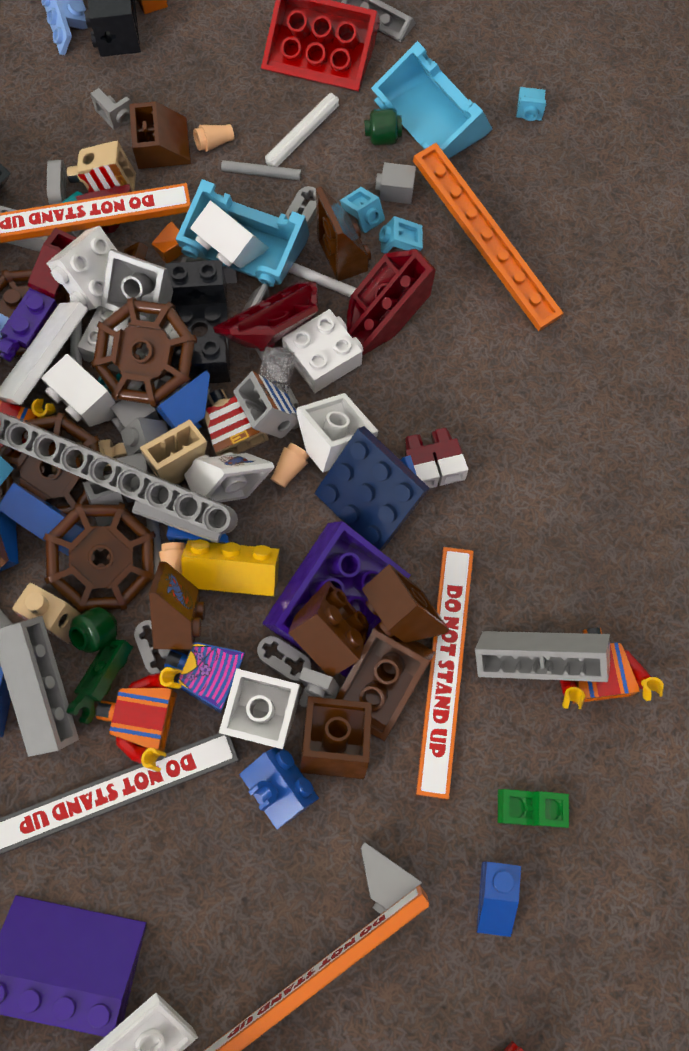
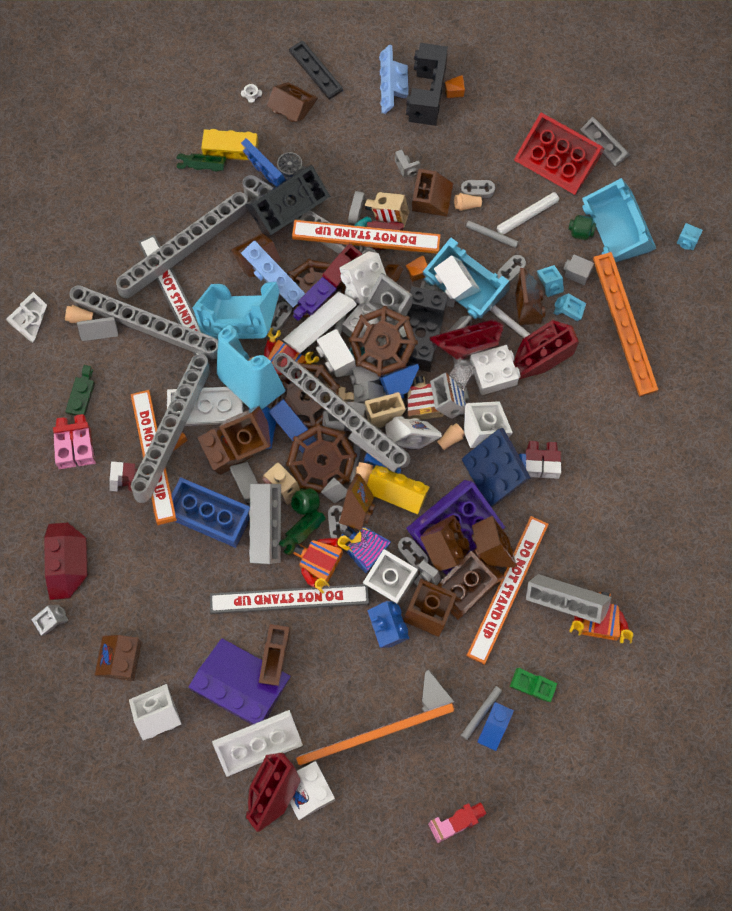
camera: 20 degrees right, 0 degrees up
(108, 900) = (274, 654): none -> reddish brown slope
(133, 599) = (334, 491): none -> light grey slope
(223, 114) = (477, 188): none -> light grey beam
(467, 882) = (481, 713): none -> light grey bar

